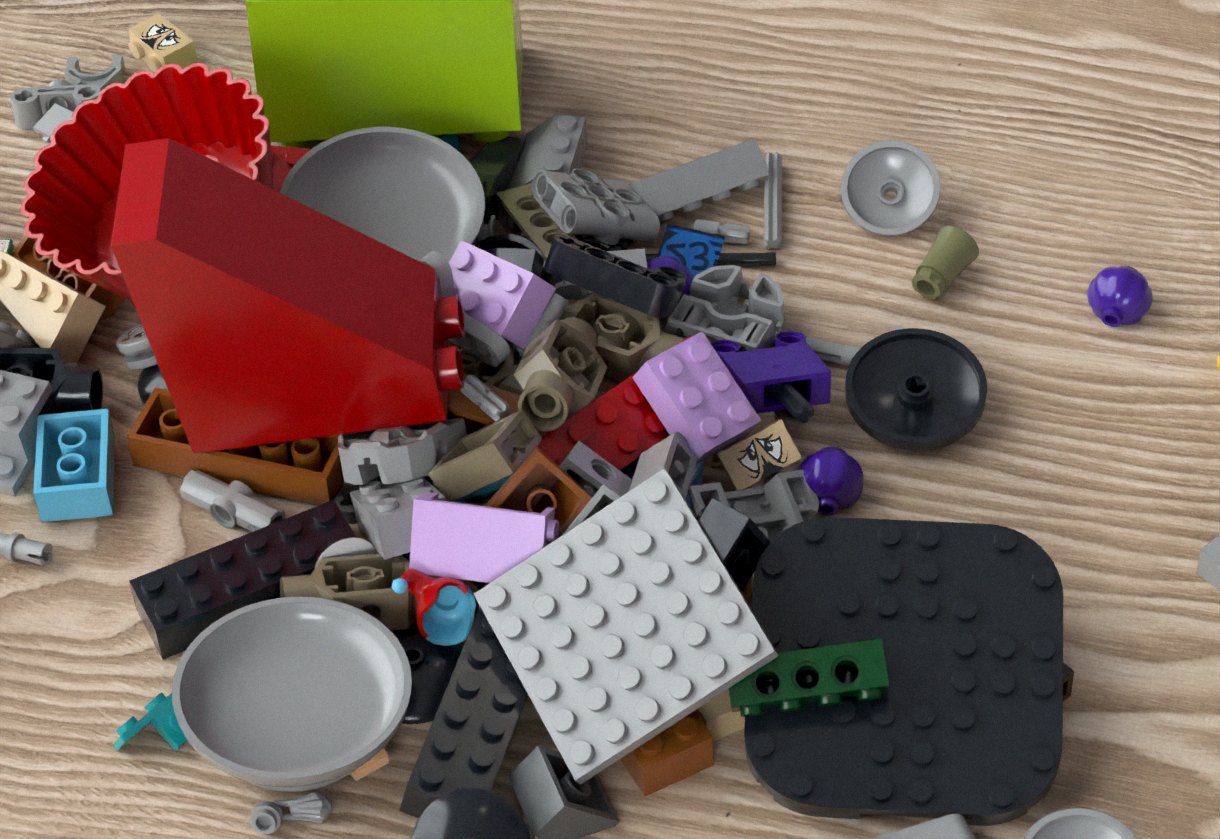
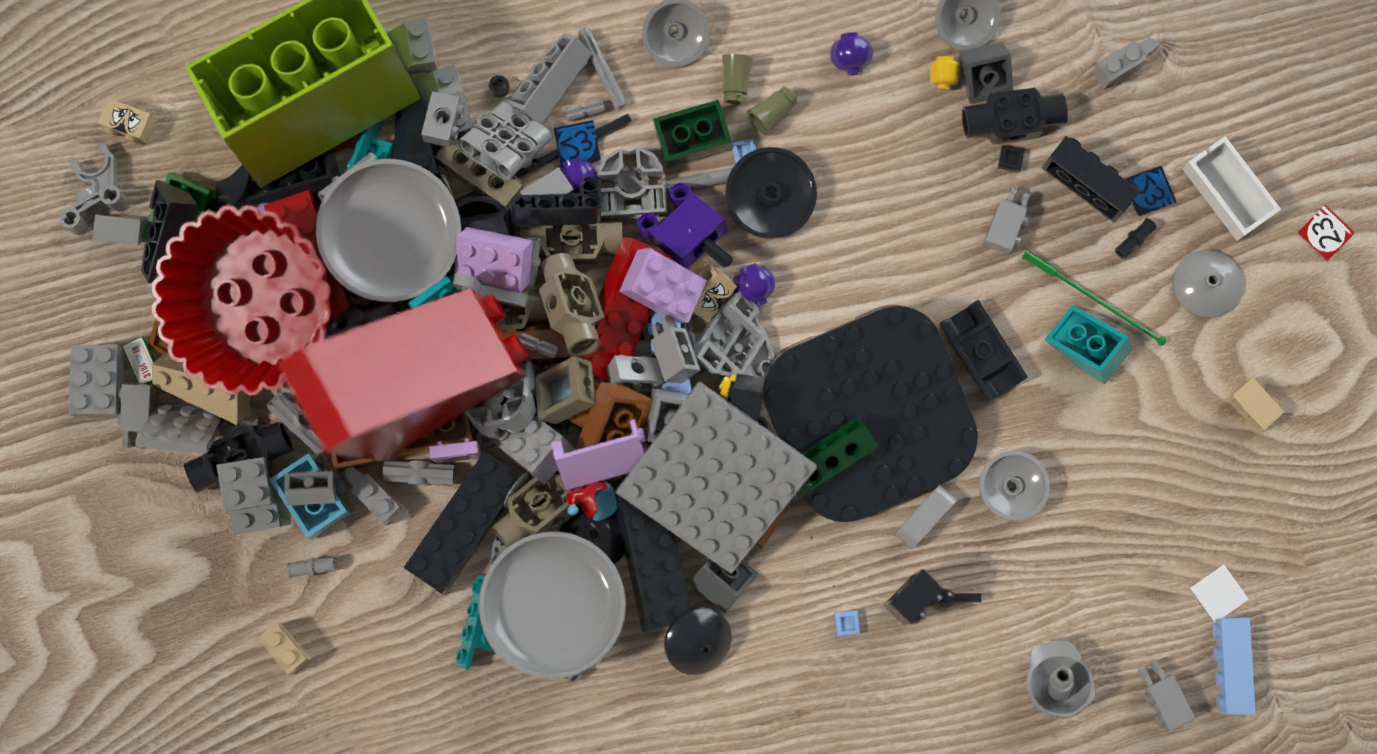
camera: 30 degrees left, 35 degrees up
(78, 428) = (310, 488): none -> light grey brick
(122, 378) = (294, 422): none -> light grey piece
(122, 464) = (324, 460): none -> light grey axle
(155, 501) = (373, 495): none -> light grey hinge
(290, 491) = (455, 452): none -> lavender container
(529, 147) = (440, 106): none -> light grey brick
(552, 91) = (414, 46): none -> light grey slope
(628, 169) = (503, 91): none -> black bush
(846, 292) = (692, 133): none -> dark green brick
(972, 311) = (771, 110): none -> olive plant
(1128, 690) = (983, 351): none -> black piece

